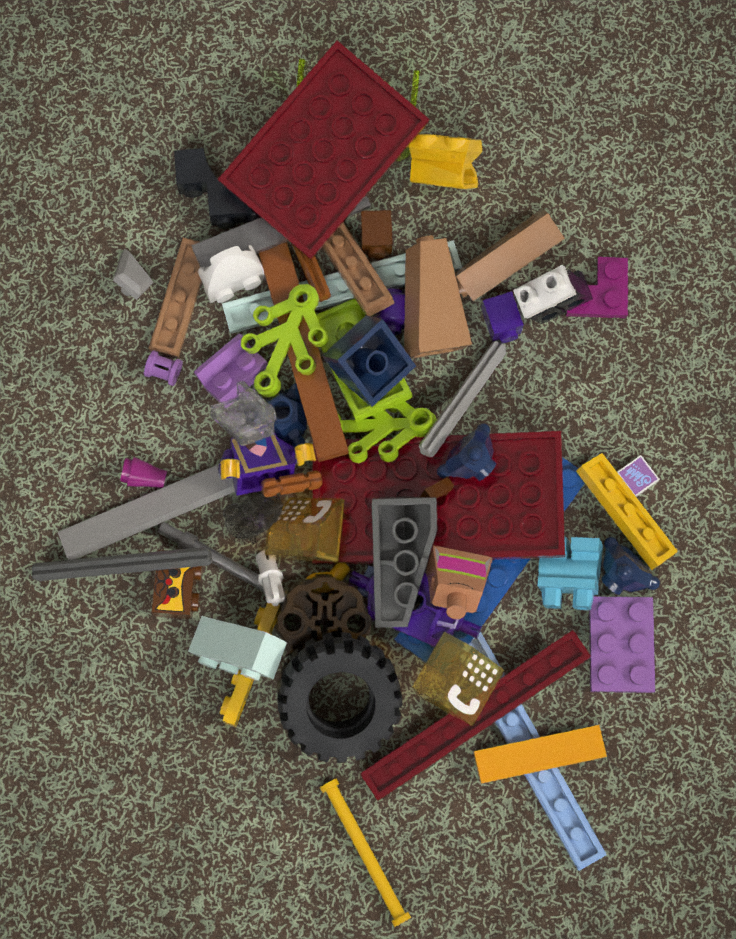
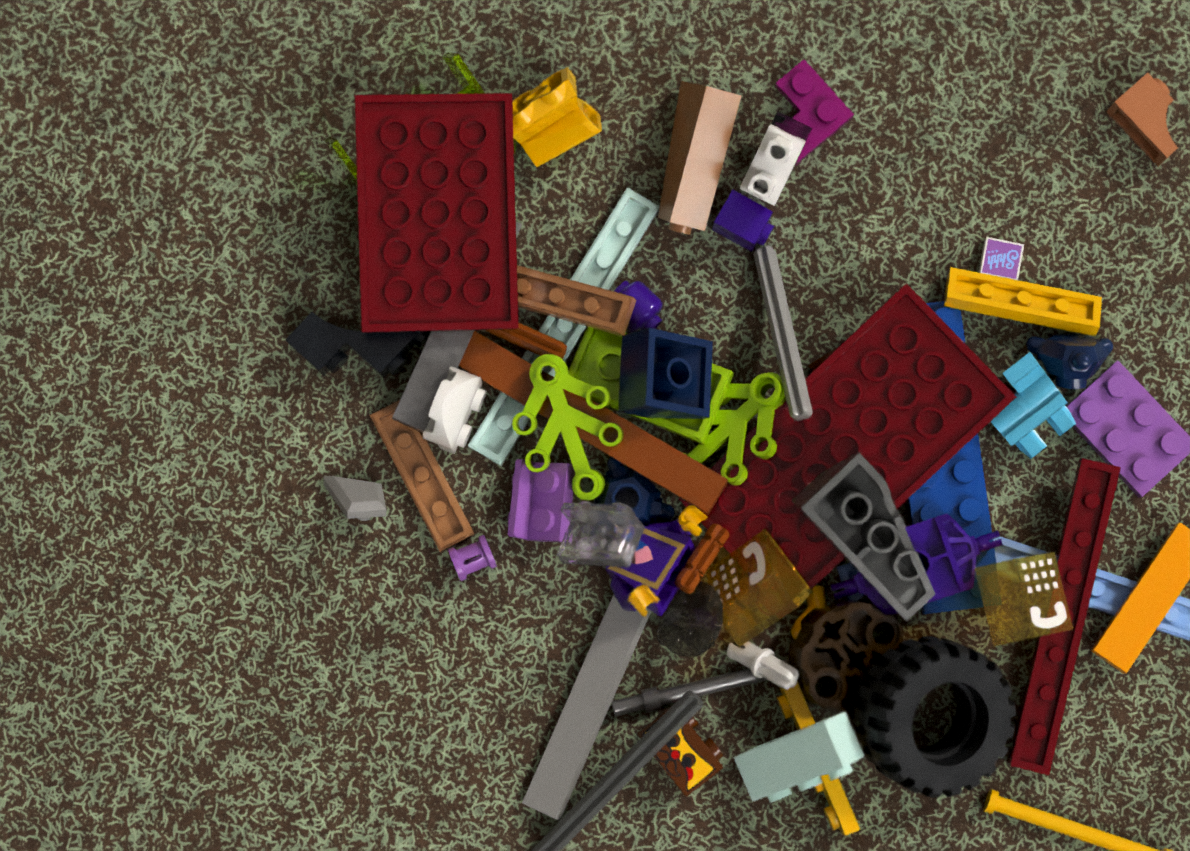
camera: 40 degrees left, 5 degrees up
(142, 474) = (546, 677): magenta cone -> none
(376, 233) = (551, 246): reddish brown brick -> none
(433, 303) = (668, 265): medium nougat slope -> none
(438, 489) = (846, 441): reddish brown tile -> none
(456, 580) = (942, 509): nougat torso -> none
(470, 456) = (847, 382): dark blue rock -> none

